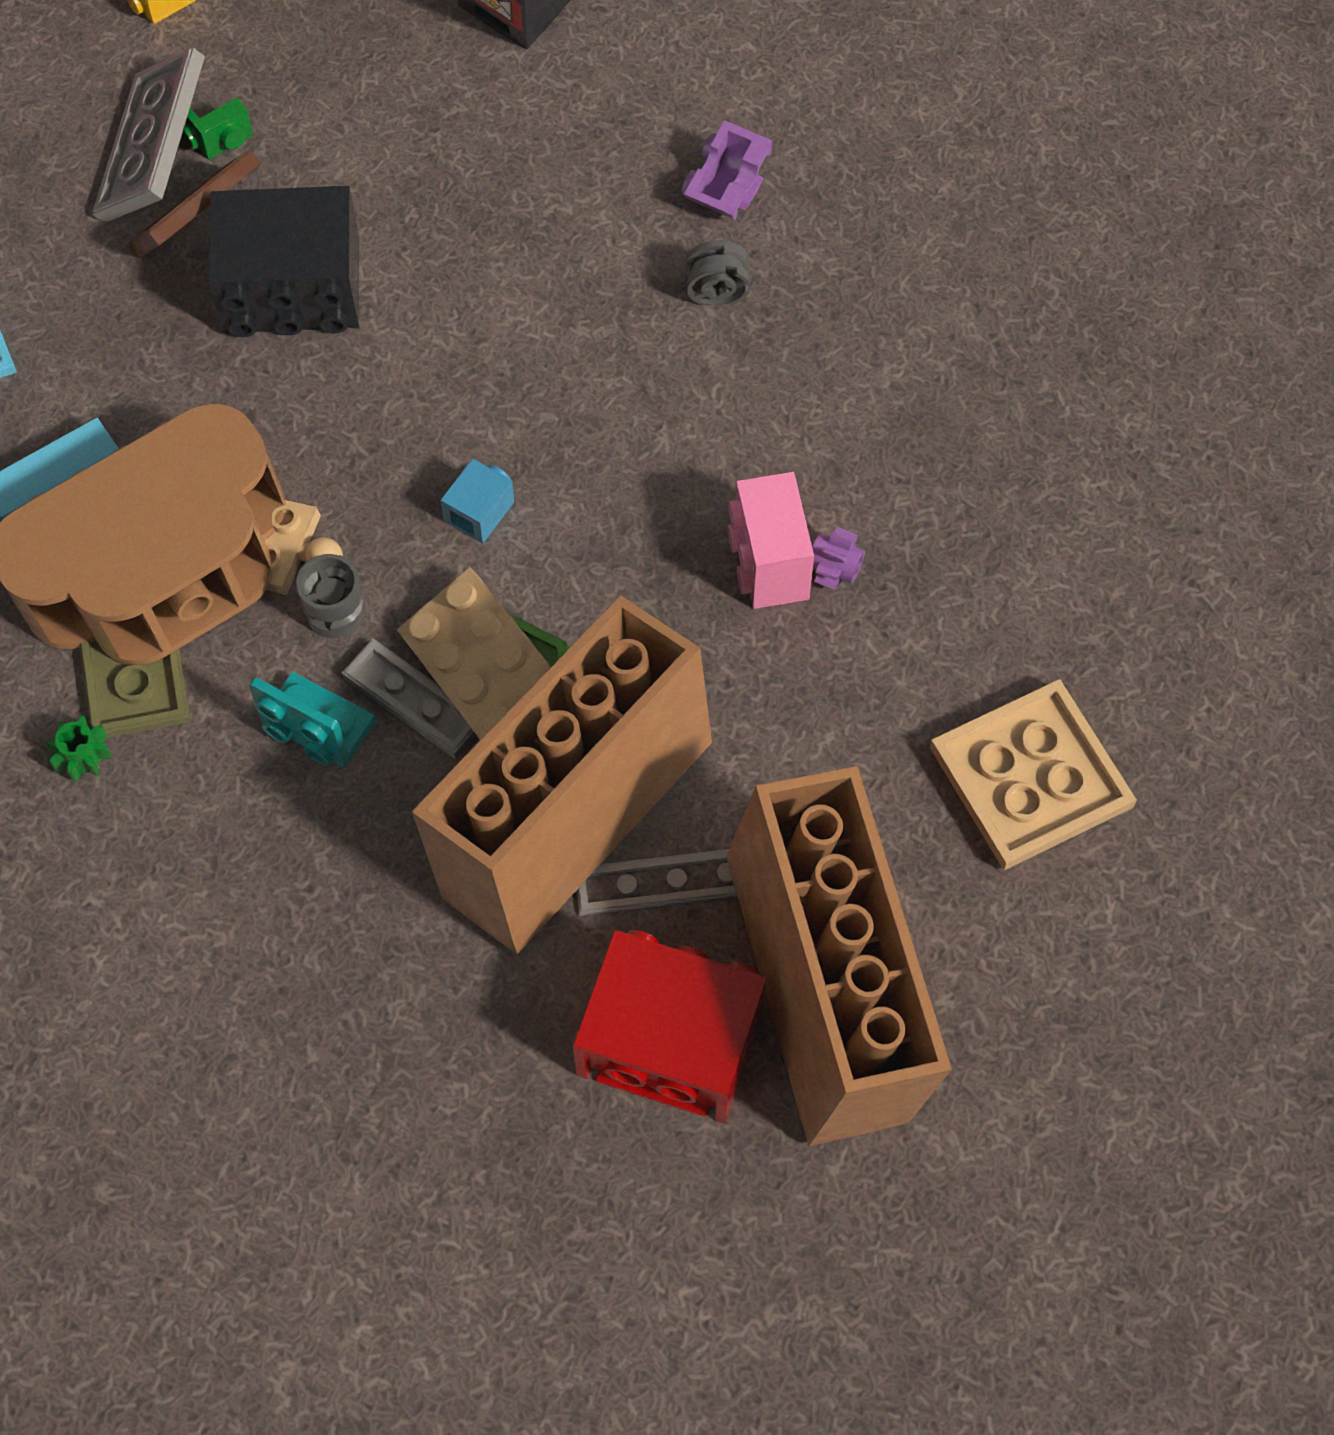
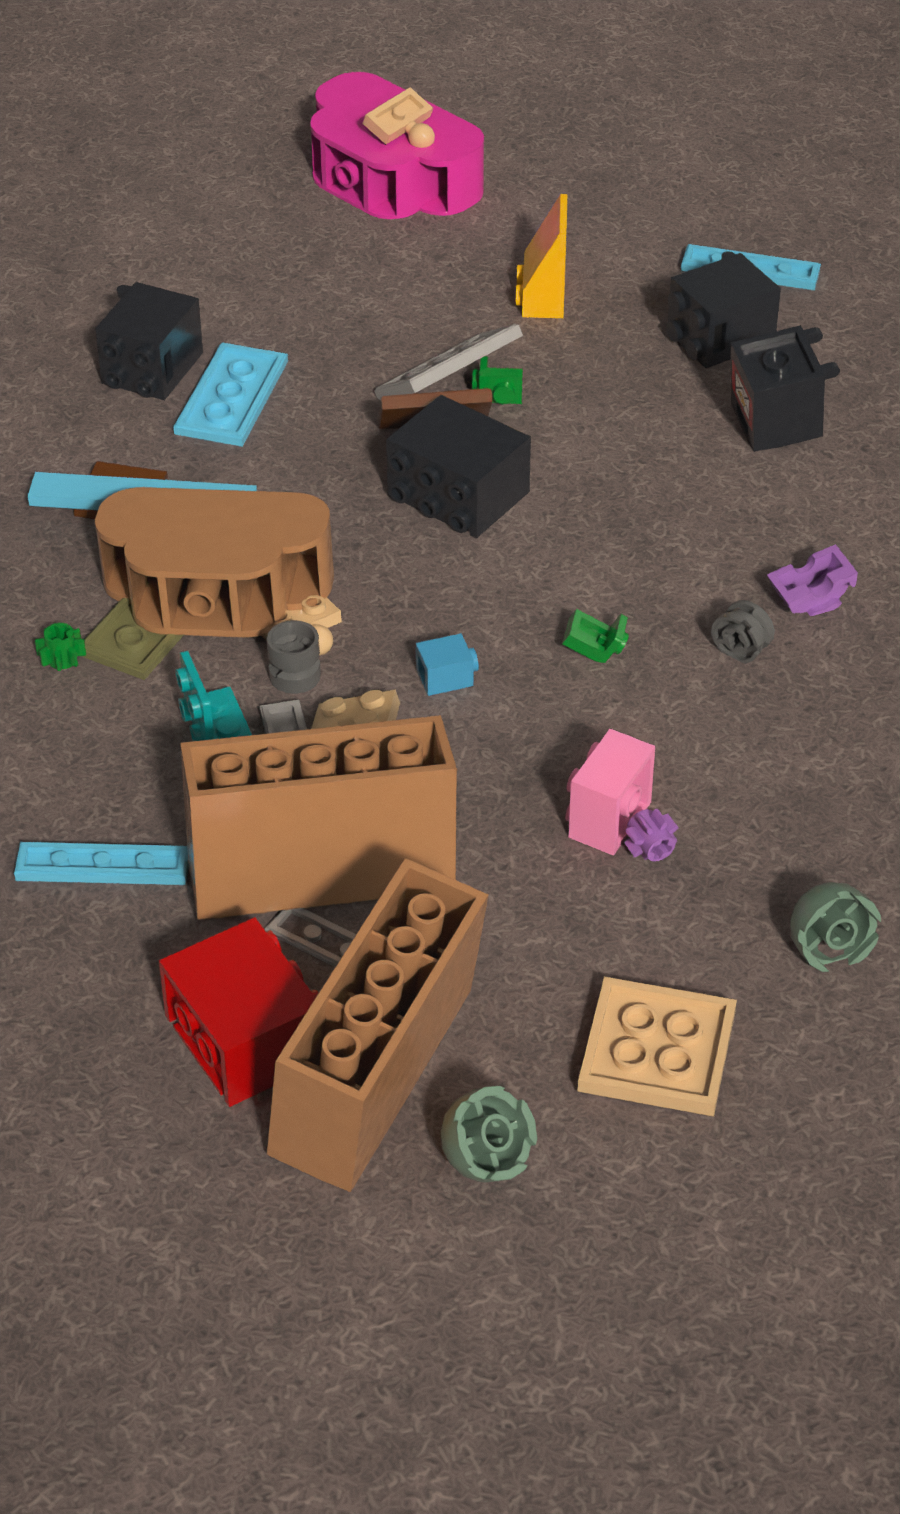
camera: 40 degrees right, 20 degrees down
(358, 960) = (102, 863): none -> medium azure tile
(586, 370) = (595, 638): none -> green bracket
(992, 983) = (488, 1134): none -> sand green cylinder
(1067, 534) = (837, 916): none -> sand green cylinder

